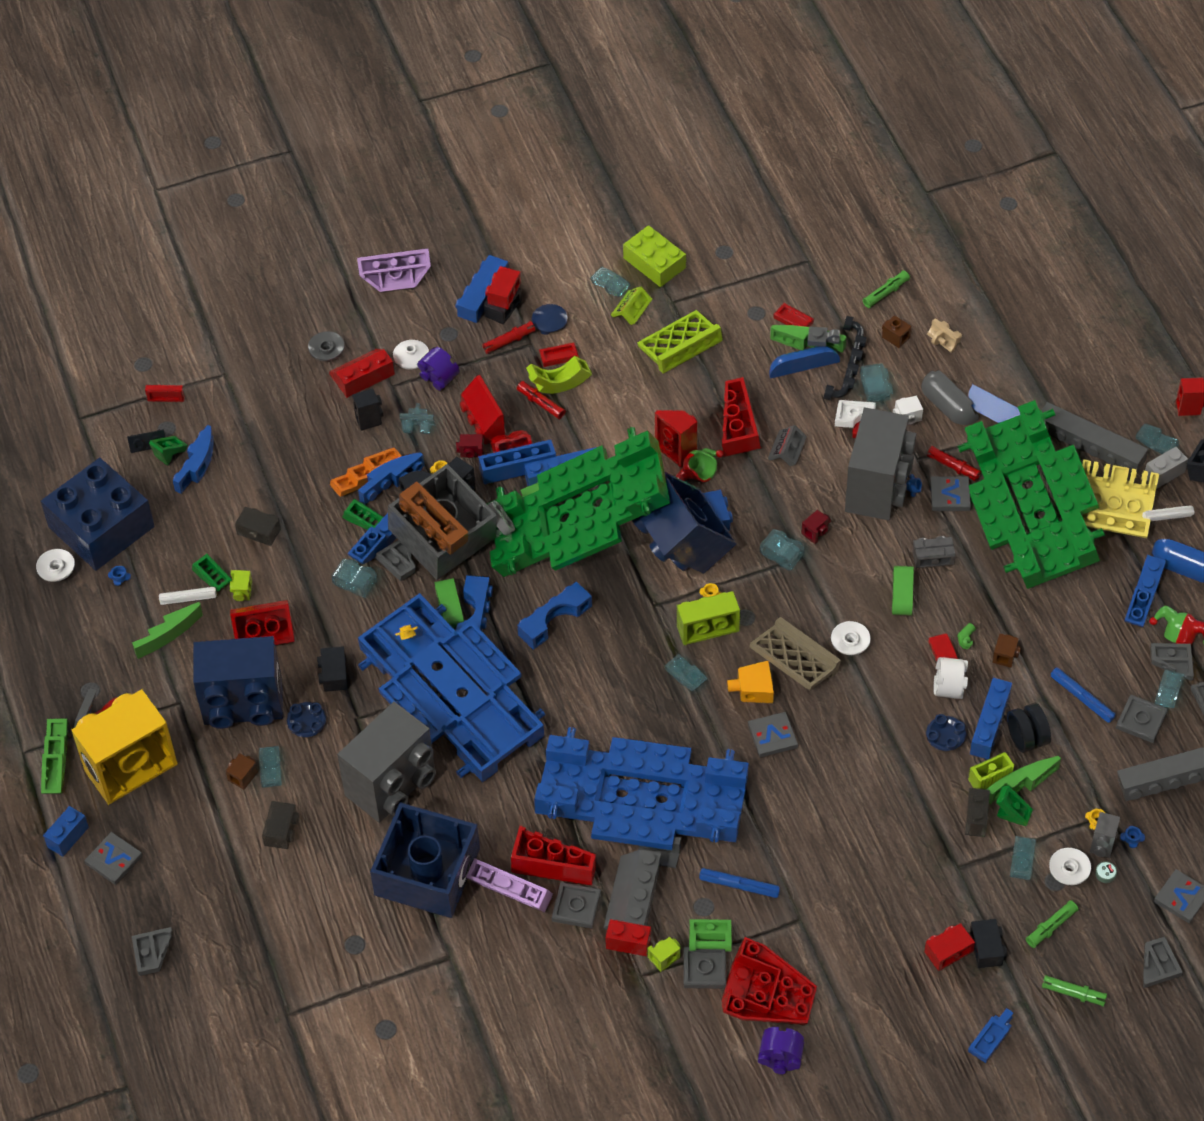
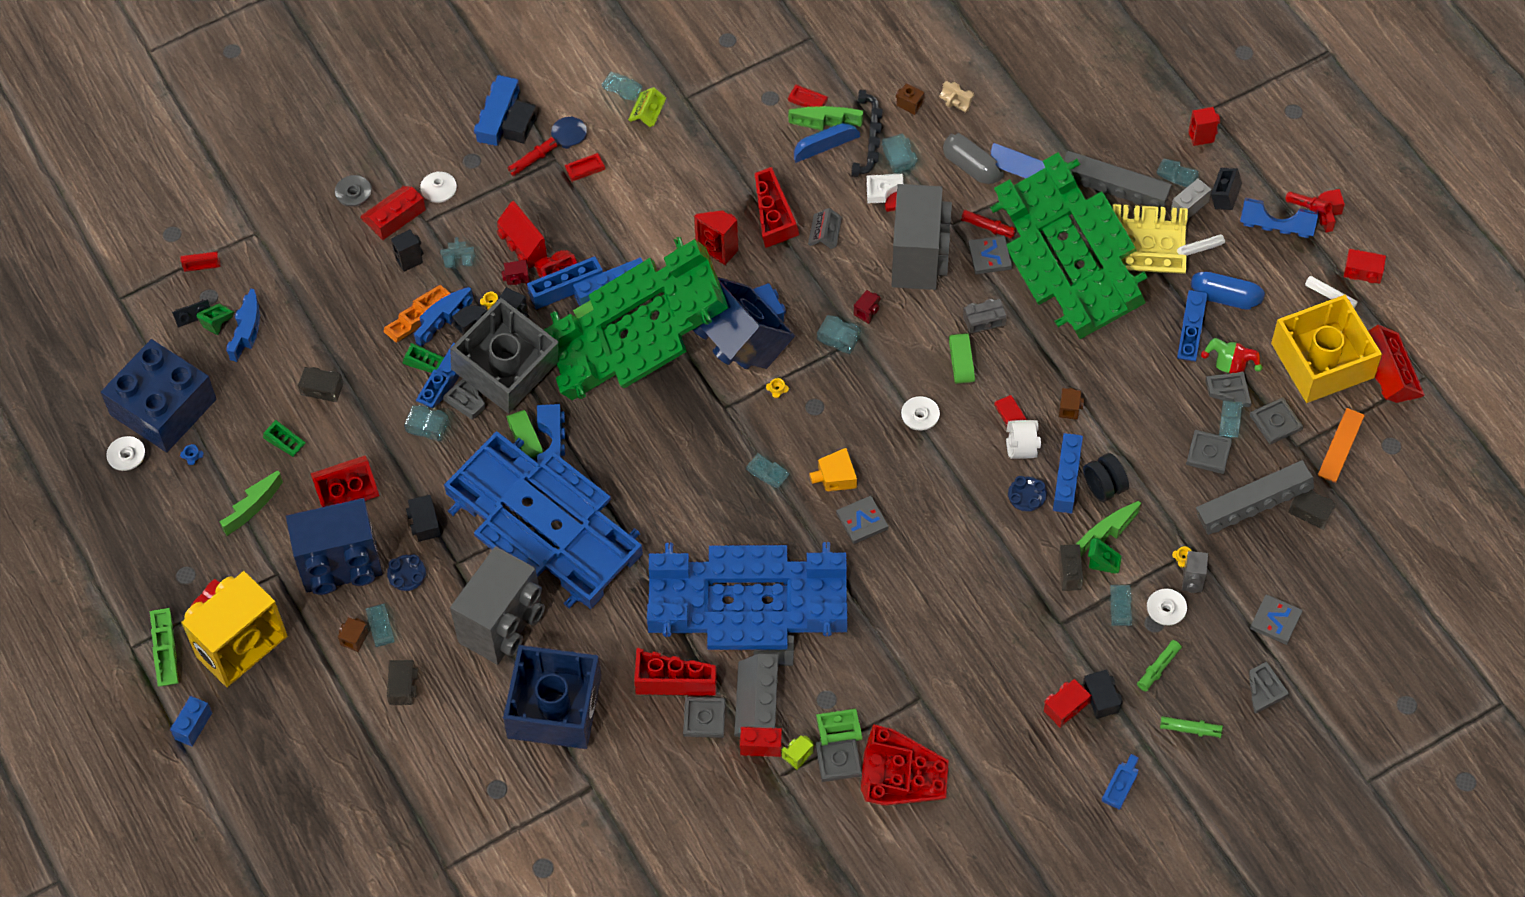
camera: 10 degrees left, 5 degrees up
(87, 705) = (186, 600): dark grey tile -> none
(113, 858) = (243, 740): dark grey tile -> none
(151, 950) = (299, 826): dark grey wing -> none
(187, 595) = (263, 465): white axle -> none
(241, 585) = (315, 446): lime brick -> none
(394, 270) = (406, 103): lavender wedge -> none
(406, 632) = (491, 472): yellow plate -> none
(438, 368) = (469, 198): dark purple brick -> none
(454, 533) = (475, 341): dark orange brick -> none
(503, 287) = (519, 107): red brick -> none
(503, 523) = (566, 349): light grey beam -> none
(509, 885) = (637, 708): lavender brick -> none
(556, 410) = (592, 225): red pin -> none
(560, 379) = (591, 192): lime arch -> none
(572, 601) = (645, 415): blue arch -> none
(654, 256) = (660, 54): lime brick -> none
(686, 348) = (710, 143): lime fence -> none
(700, 465) = (743, 261): bright green piece -> none
(708, 618) = (780, 413): lime brick -> none
(739, 882) = (856, 671): blue axle -> none
(781, 1049) = (927, 828): dark purple brick -> none
(802, 646) = (876, 428): dark tan fence -> none
(820, 336) = (837, 114): dark grey plate -> none
(891, 285) = (897, 52): bright green pin -> none
(911, 407) = (935, 175): white brick -> none
(914, 485) = (954, 251): blue plate -> none
(964, 636) = (1027, 395): bright green arm -> none
(990, 771) = (1077, 526): lime brick -> none
(1083, 695) = (1150, 436): blue axle -> none
(1106, 872) = (1201, 607): tile -> none
(1132, 831) = (1220, 563): blue plate -> none

